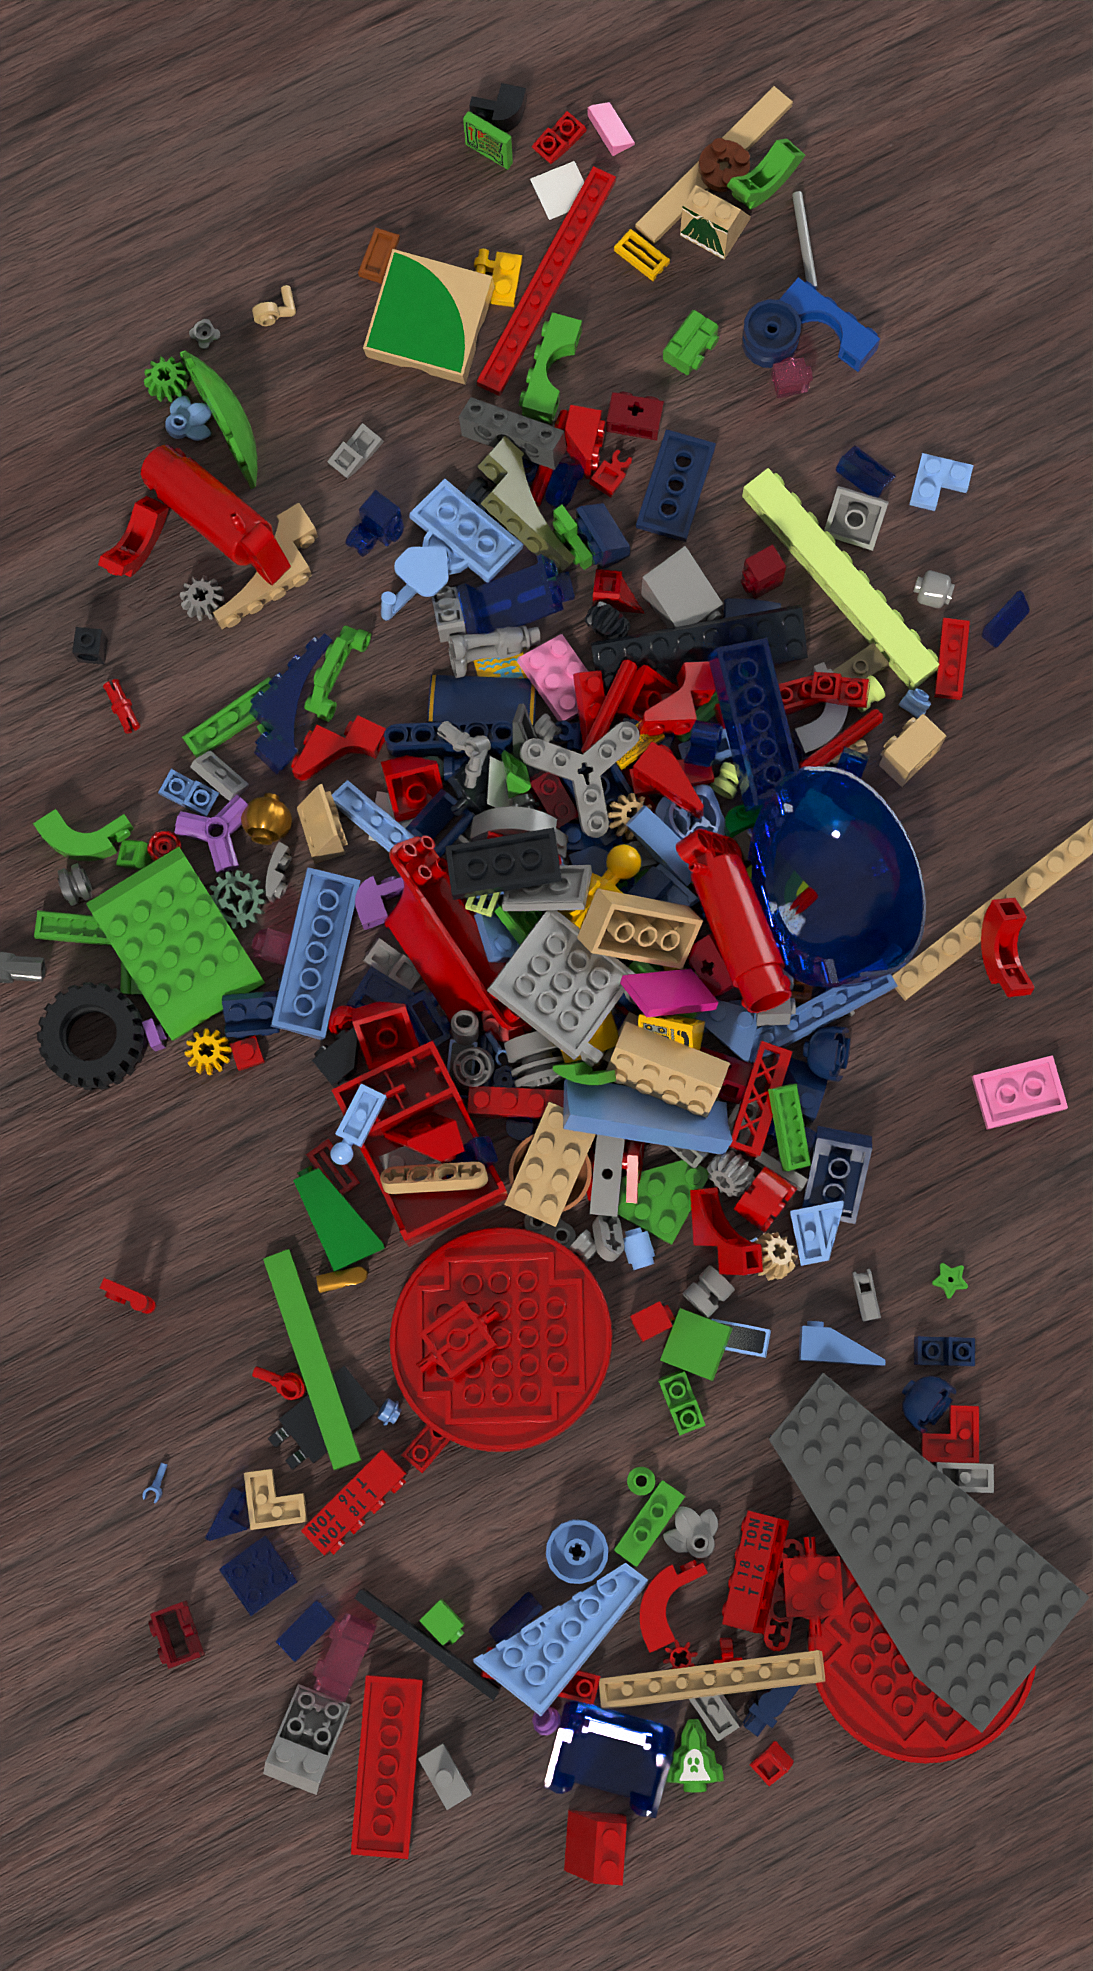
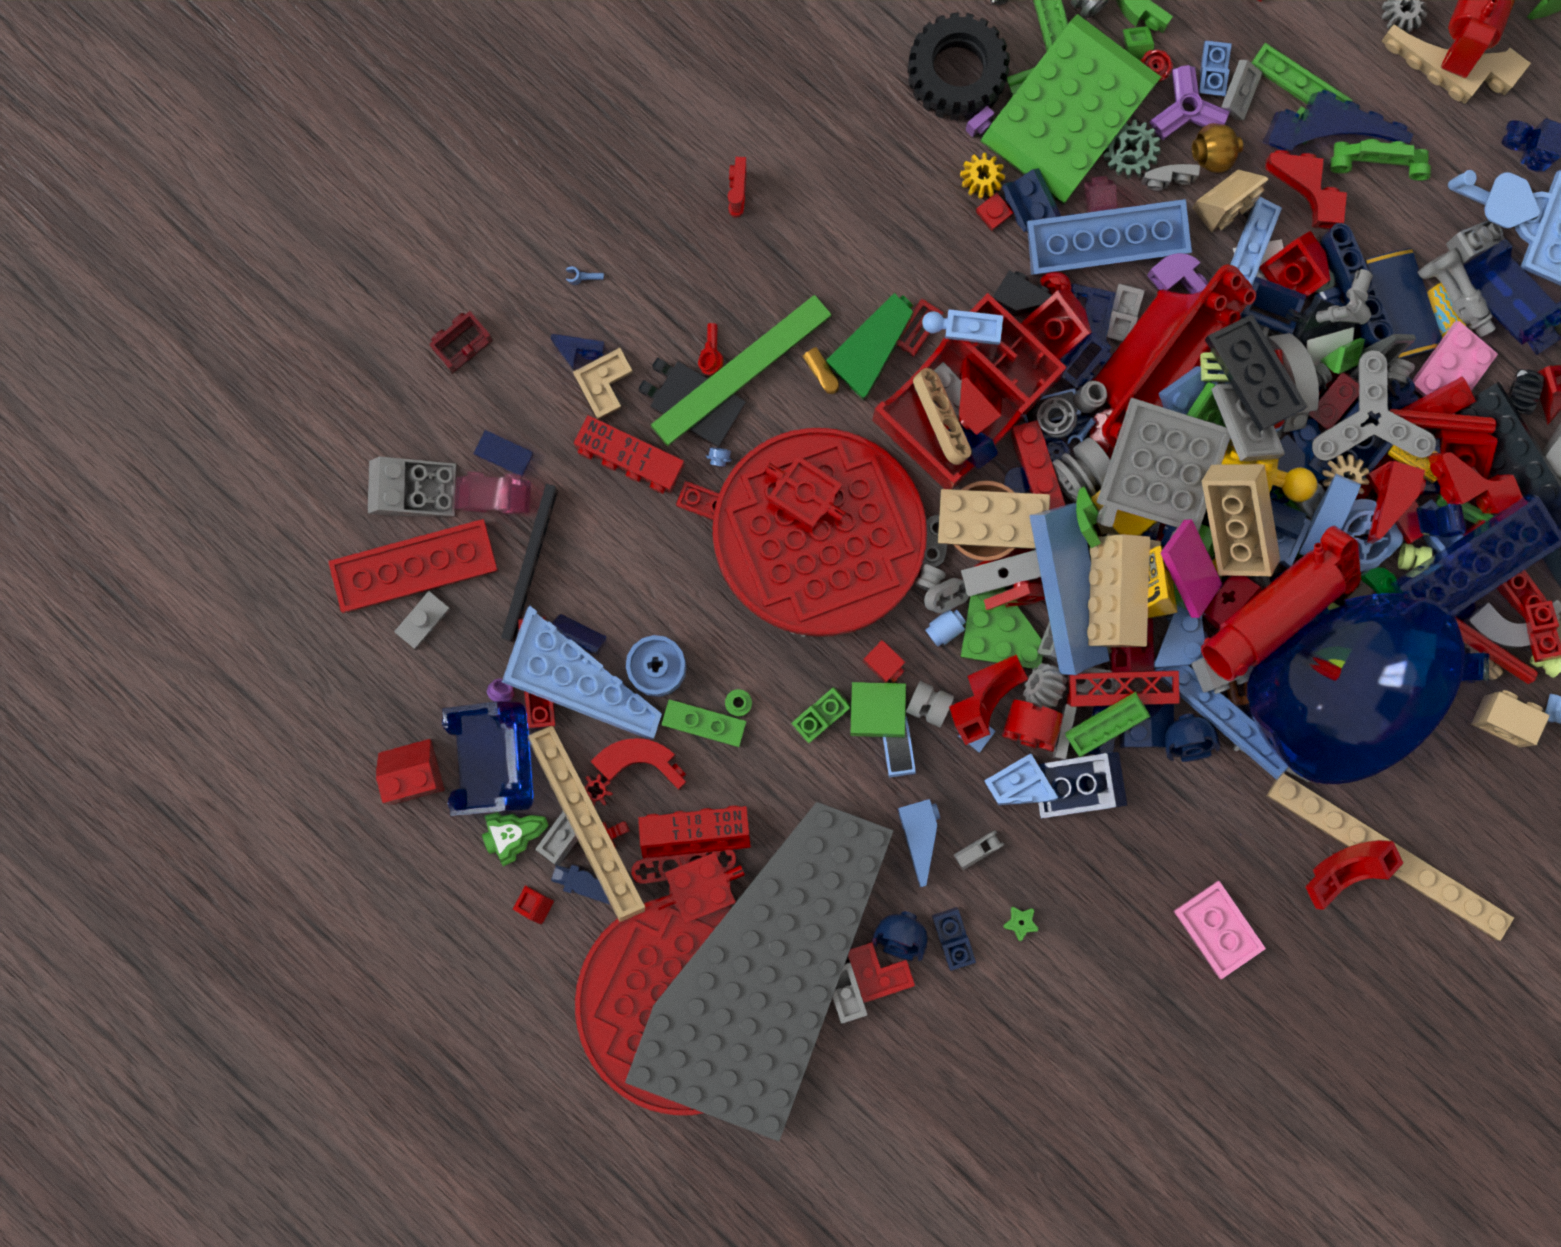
camera: 65 degrees right, 5 degrees up
(258, 1575) = (536, 394): clear blue tile -> none
(443, 1623) = (552, 570): bright green brick -> none
(691, 1528) = (712, 762): light grey plate -> none
(776, 1256) = (984, 753): tan gear -> none

